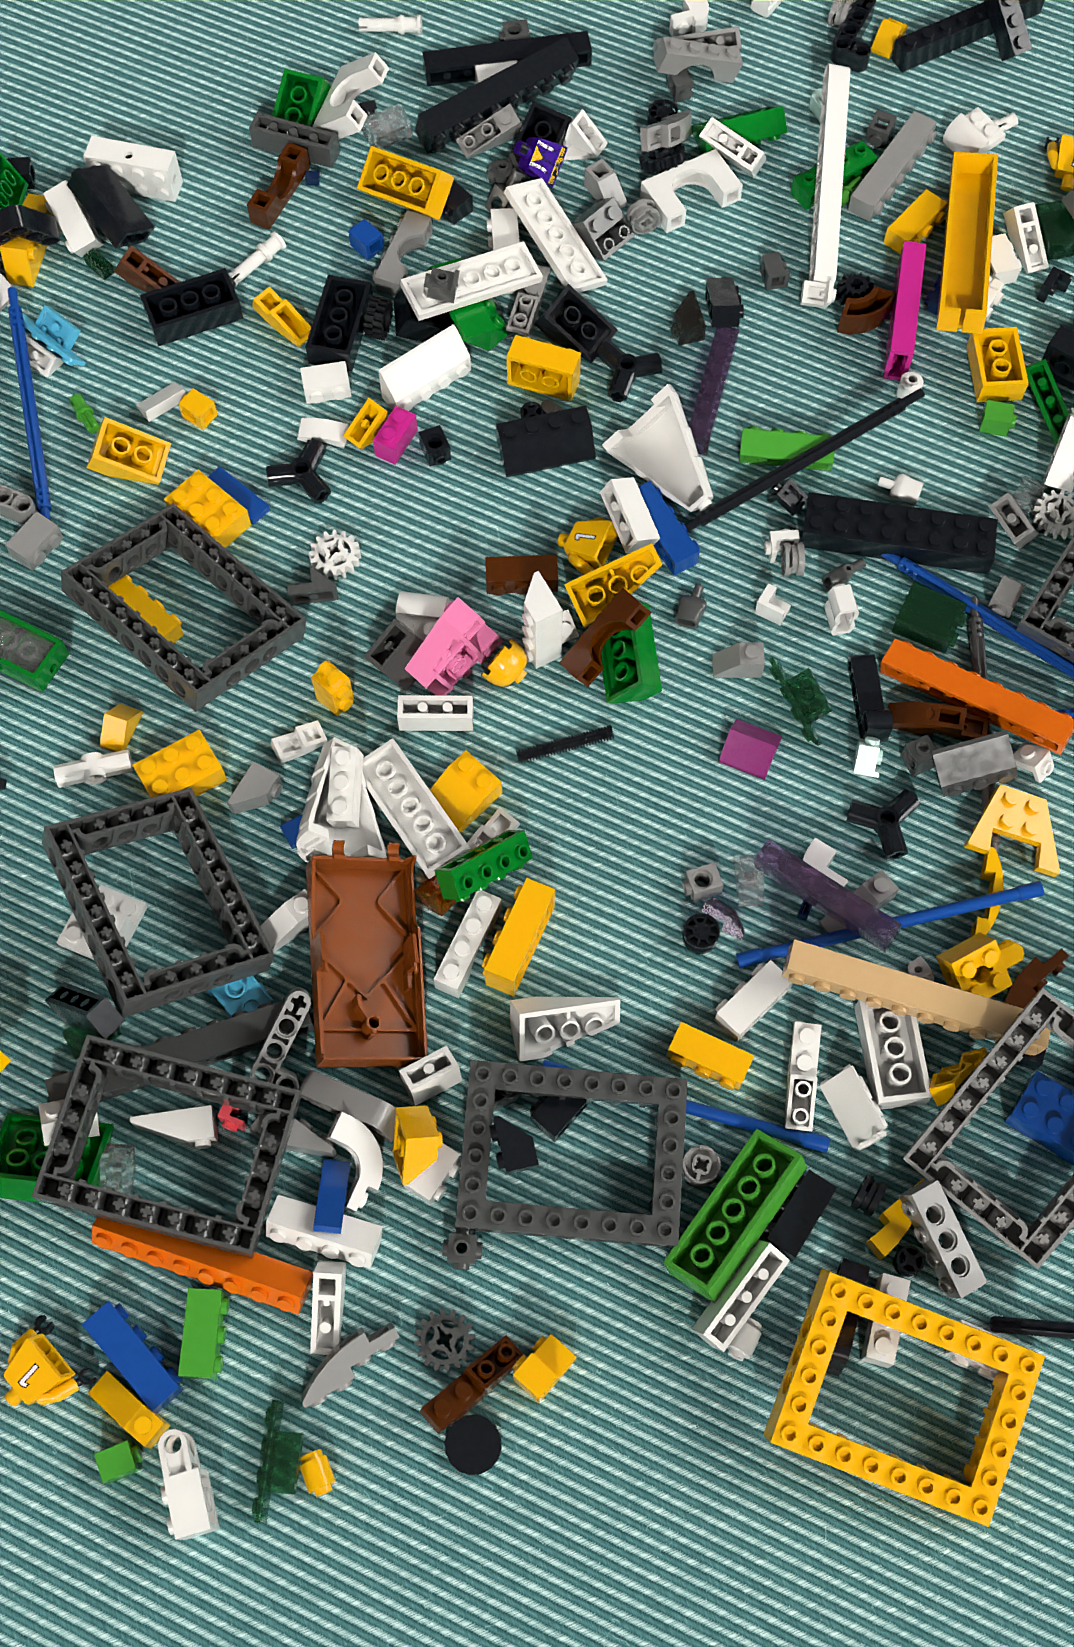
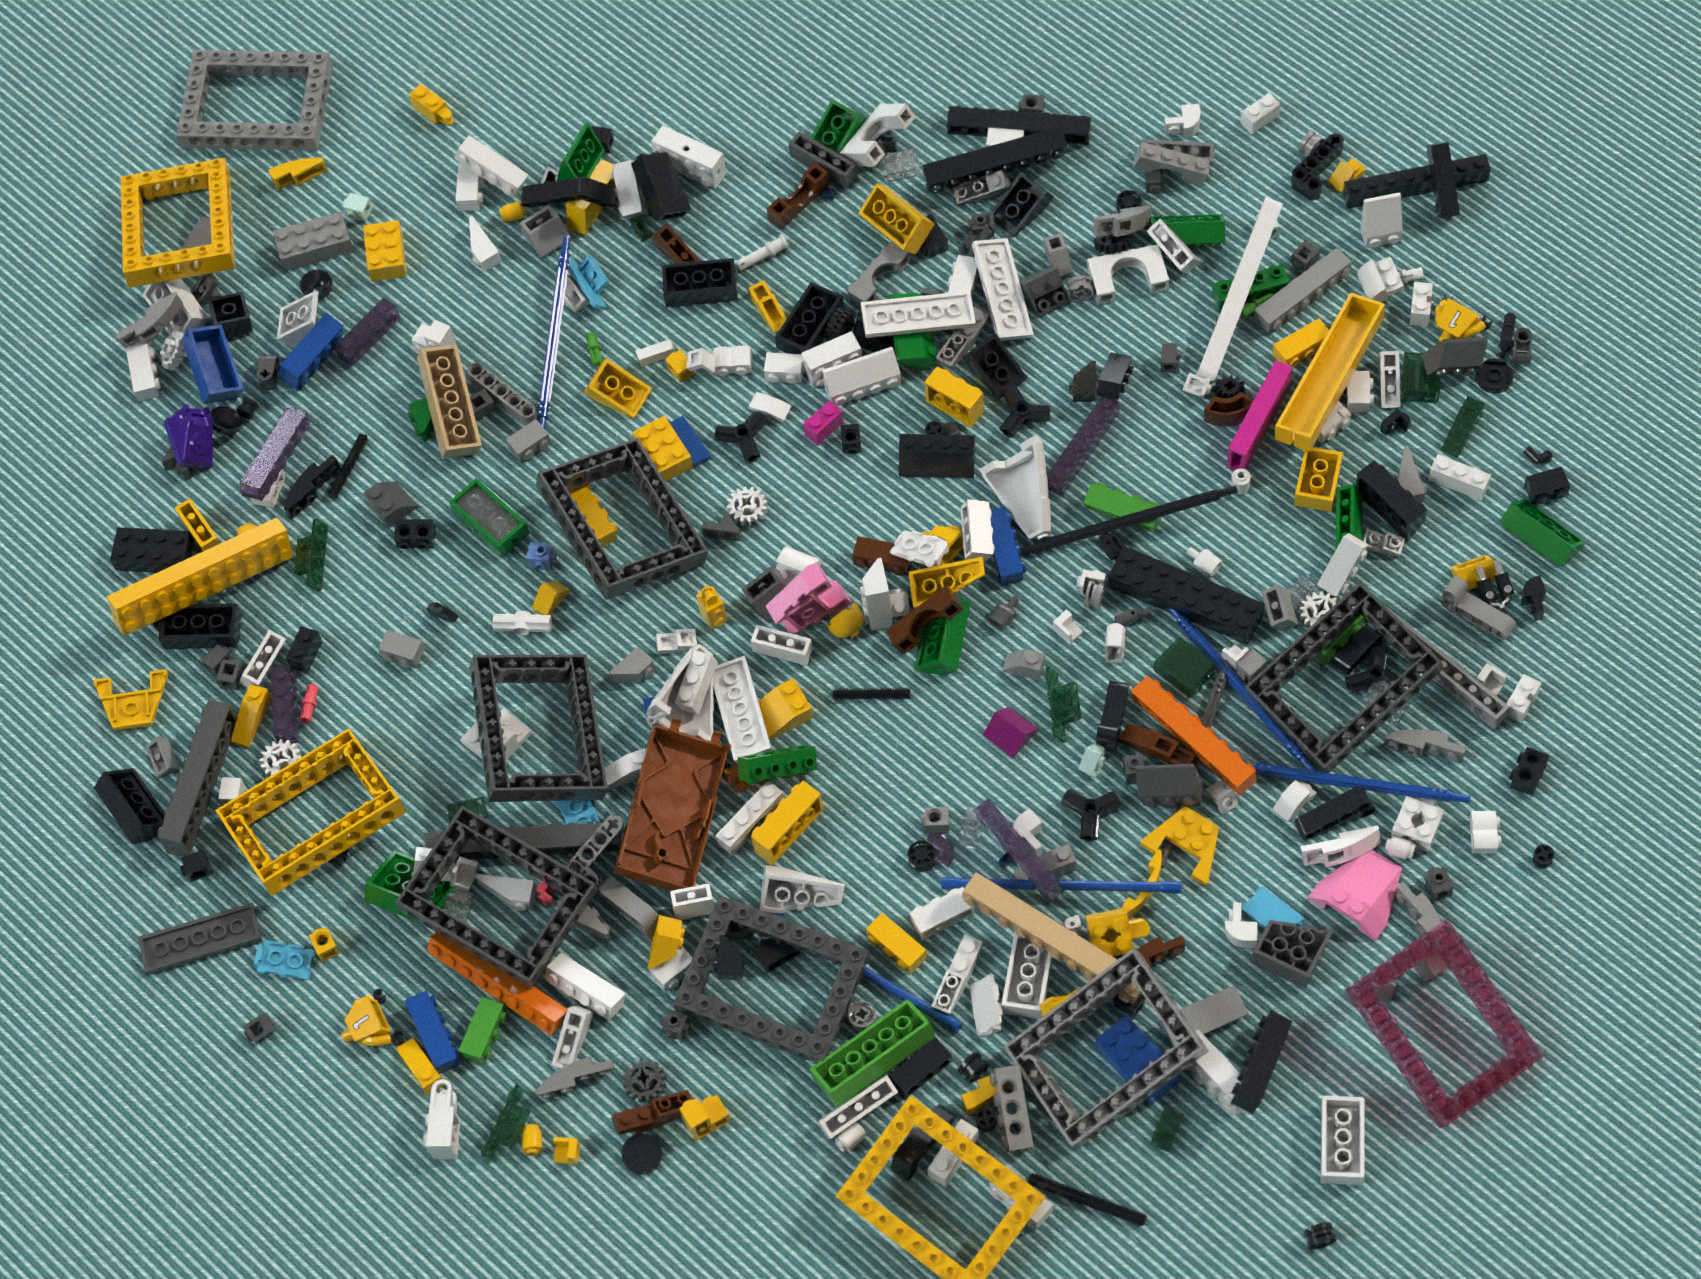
camera: 25 degrees right, 5 degrees down
(85, 1010) = (466, 791): black brick -> none
(93, 677) = (541, 555): none -> medium blue brick
(113, 1121) = (463, 874): none -> white panel
(118, 1461) = (403, 1095): bright green brick -> none
(181, 766) = (584, 636): yellow brick -> none
(222, 392) = (700, 359): none -> white panel
(260, 388) = (733, 360): none -> white brick
(331, 1196) = (597, 964): blue tile -> none
(366, 239) = (853, 256): blue brick -> none
(366, 424) = (802, 409): yellow slope -> none
(366, 1154) = (628, 934): white arch -> none
(369, 1474) = (566, 1150): none -> yellow panel
(376, 353) = (828, 355): none -> white piece
(401, 24) = (942, 75): white pin -> none
(442, 284) = (890, 314): dark grey brick -> none
(497, 824) = (803, 737): white slope -> none
(540, 159) = (1011, 222): dark purple torso -> none
(568, 553) = (920, 548): none -> white piece
(583, 138) = (1055, 210): white slope -> none
(954, 70) = (1382, 220): none -> white slope
(983, 590) = (1234, 655): none -> white panel
(997, 418) = (1303, 522): bright green brick -> none
(1027, 152) = (1421, 304): none -> white brick

